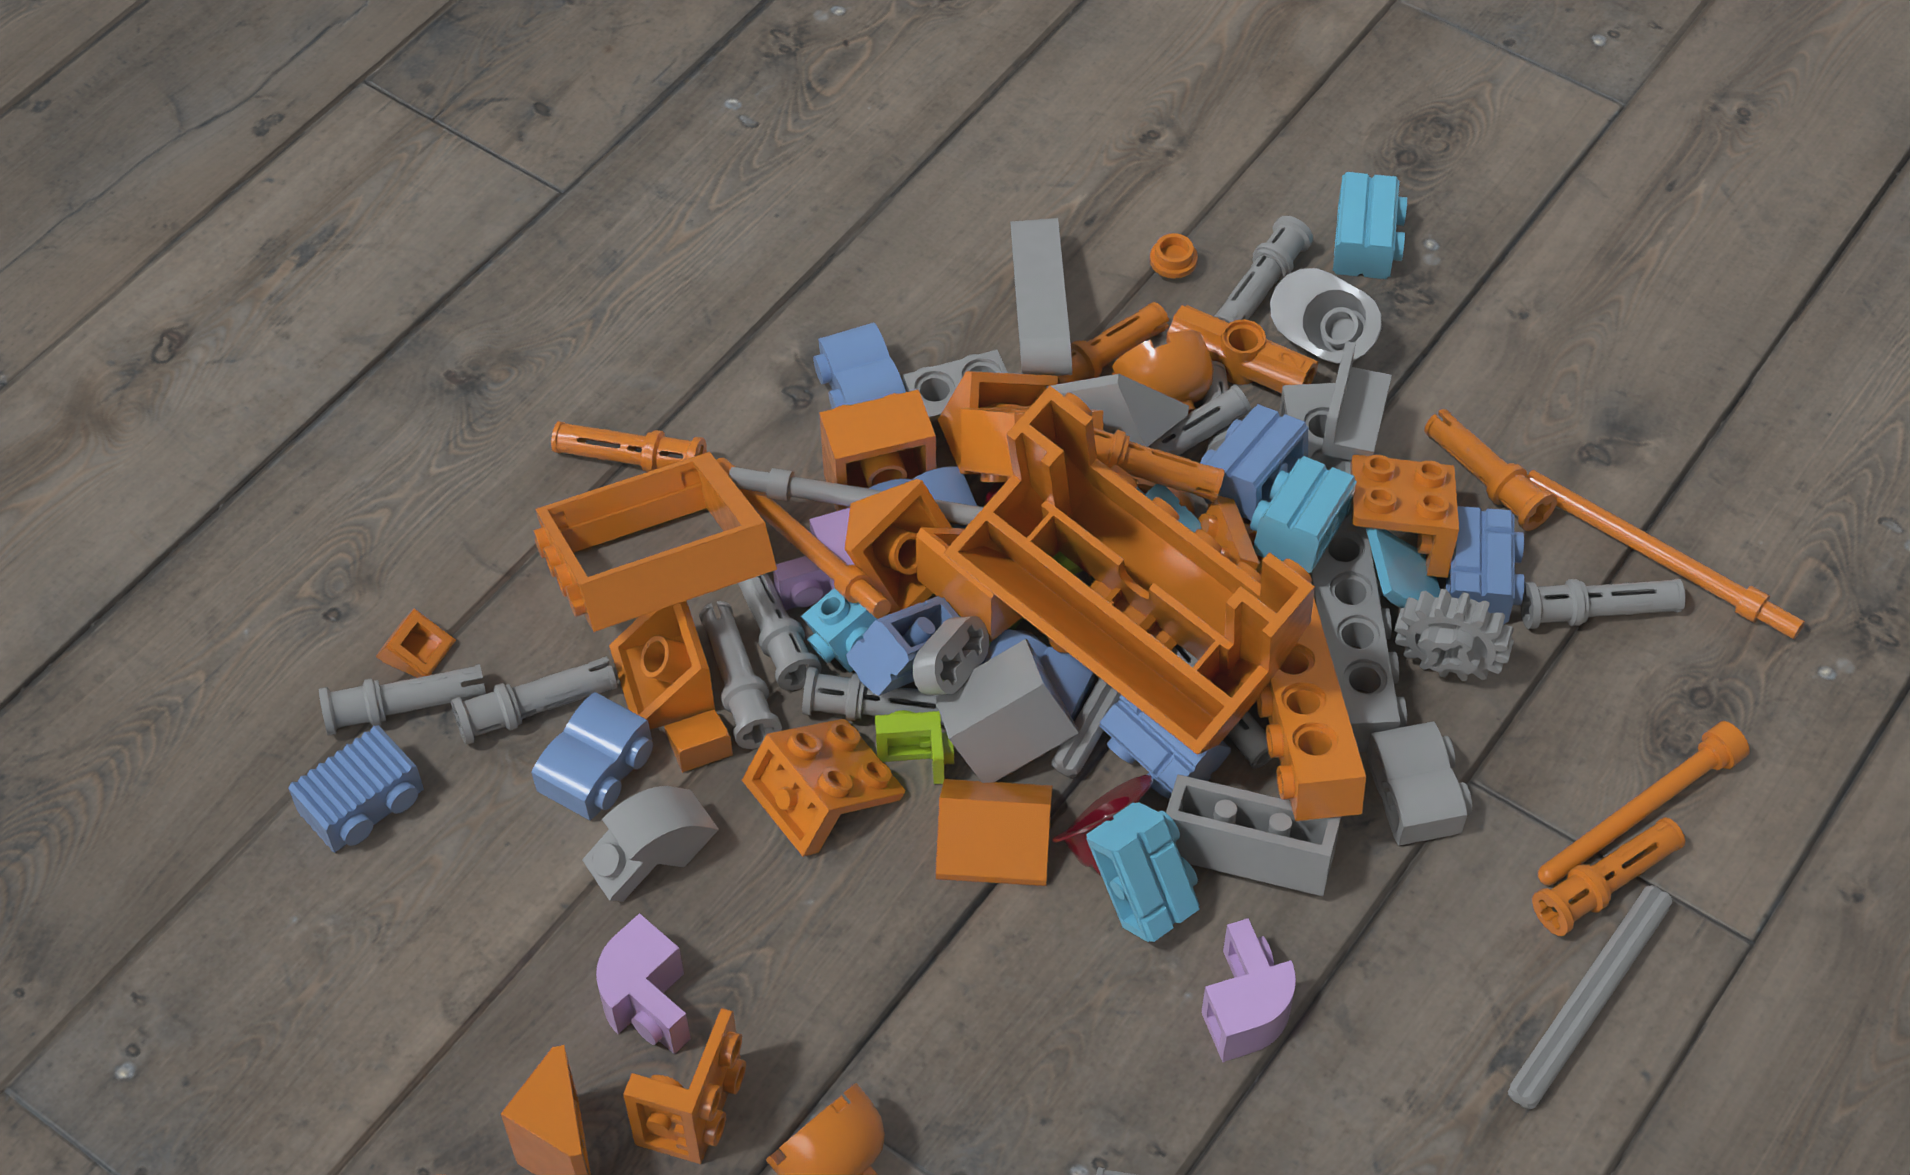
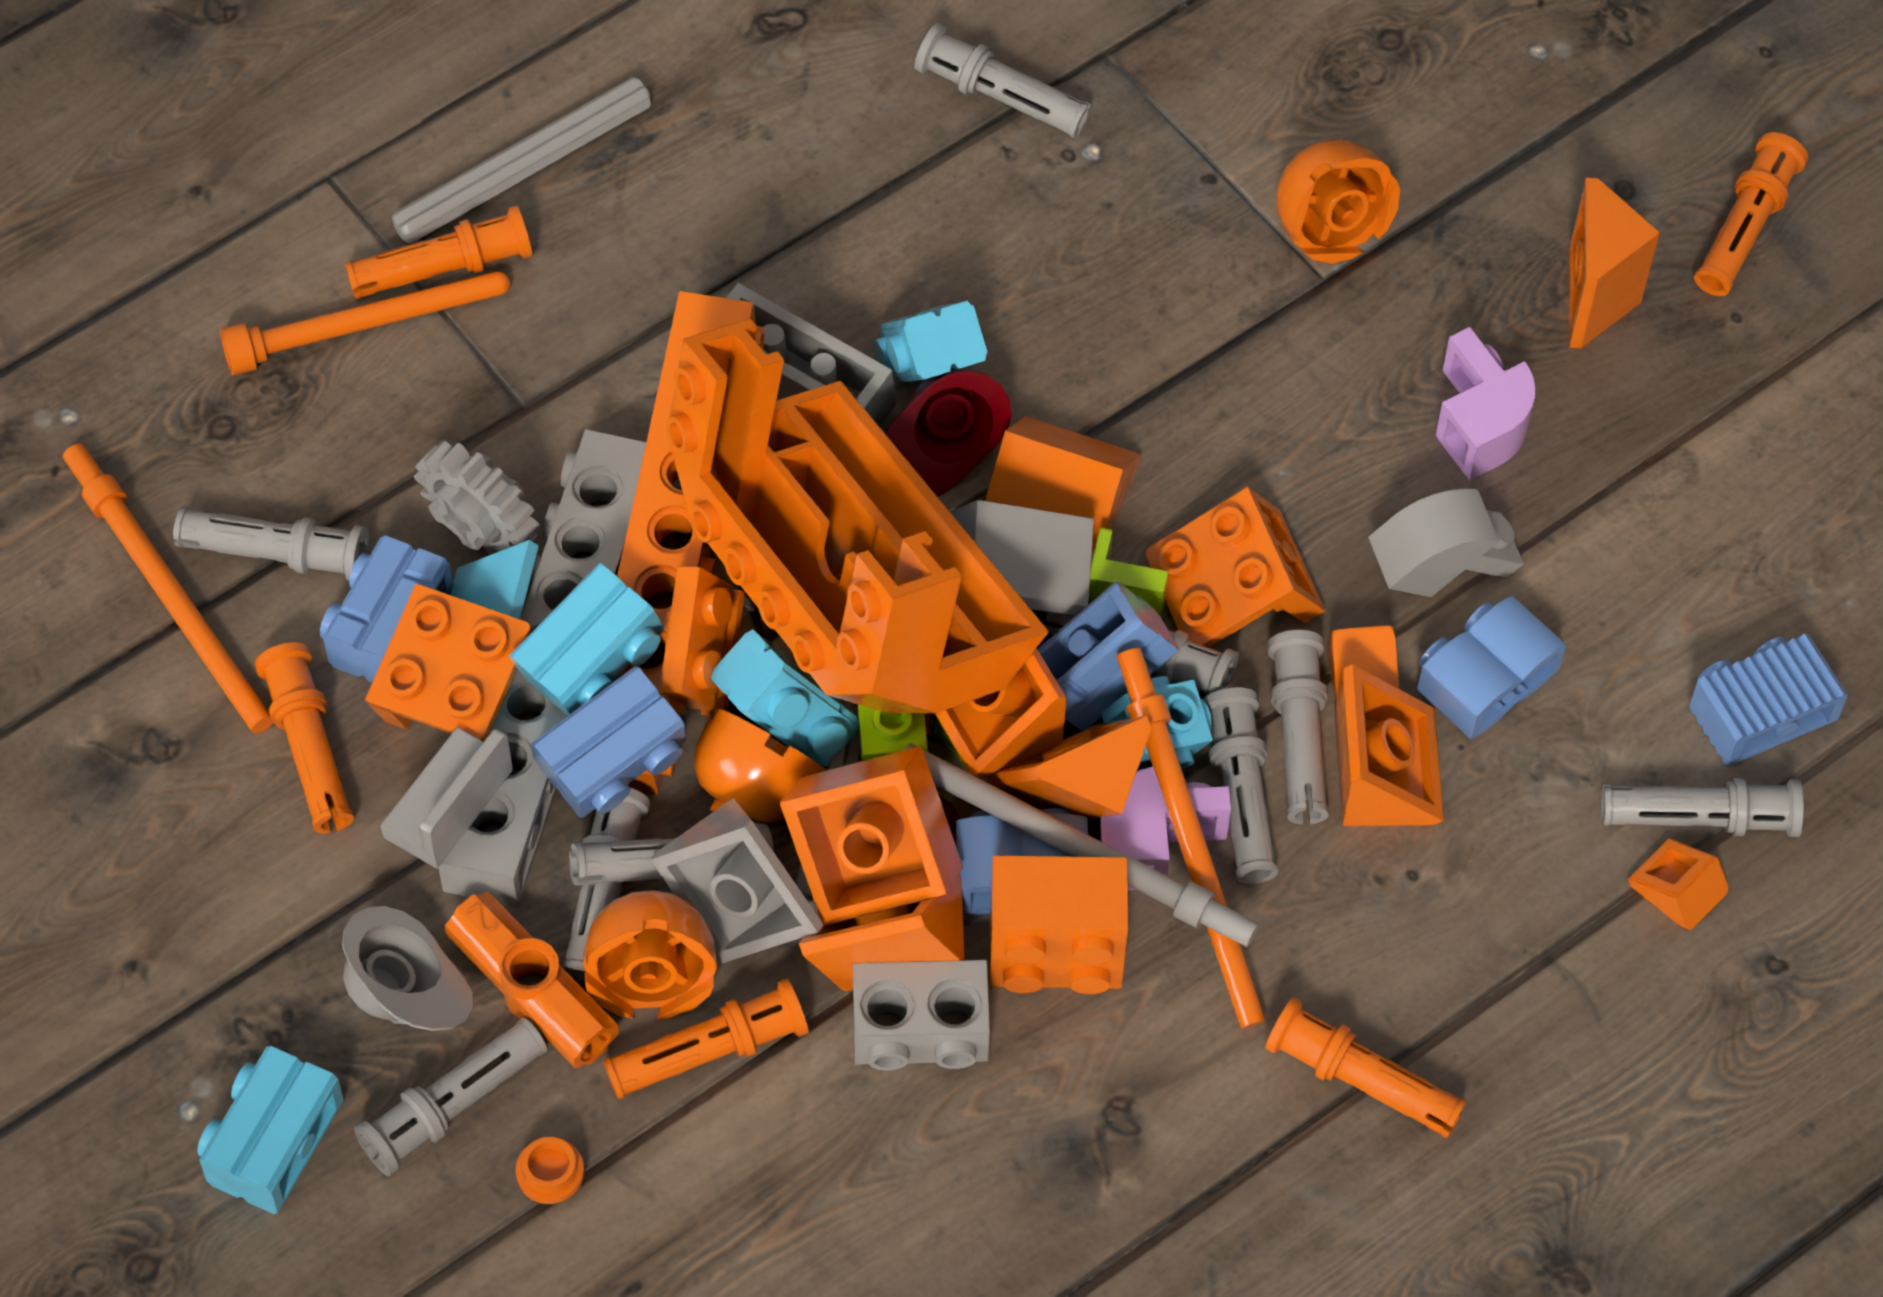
camera: 165 degrees left, 5 degrees up
(510, 705) = (1576, 758): light grey pin -> none
(666, 577) = (1486, 873): orange window -> none
(682, 1119) = (1472, 240): orange bracket -> none
(857, 366) = (1038, 1085): medium blue brick -> none
(950, 655) = (1071, 596): light grey beam -> none
(1041, 298) = (765, 1109): light grey beam -> none
(1158, 465) = (787, 727): orange pin -> none
(1256, 1003) = (861, 224): lavender brick -> none
(1417, 783) = (589, 388): light grey brick -> none

